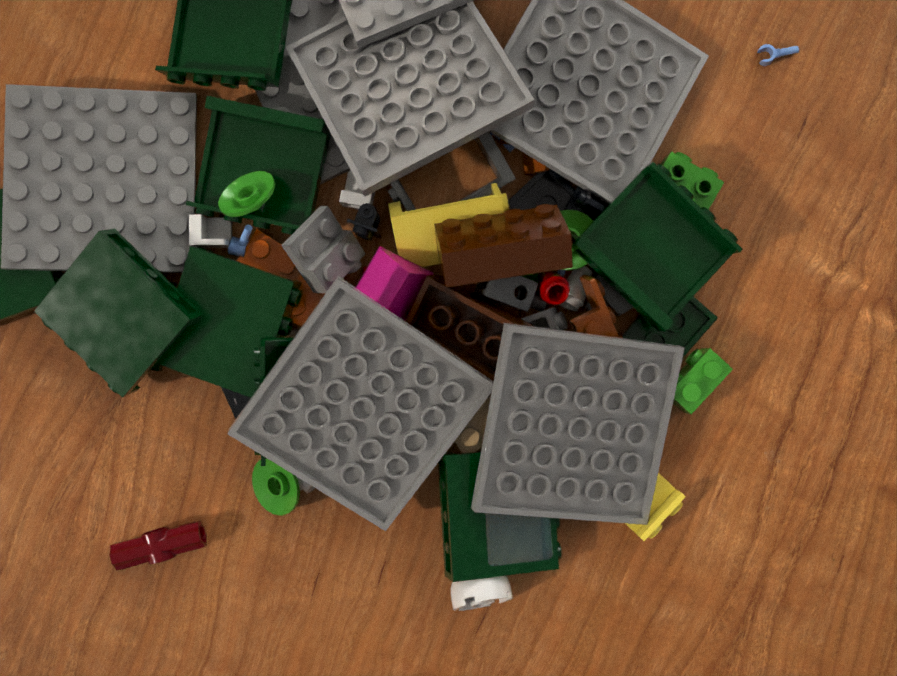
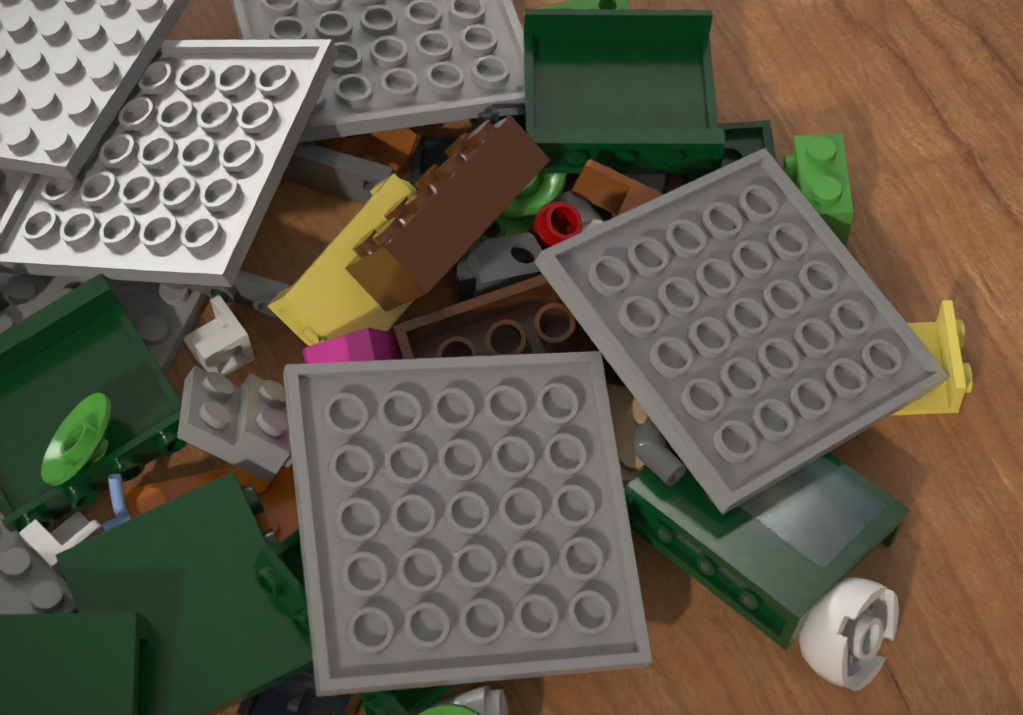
camera: 45 degrees left, 30 degrees down
(366, 222) = (262, 347): black hinge -> none
(472, 452) = (654, 452): none -> dark grey arm

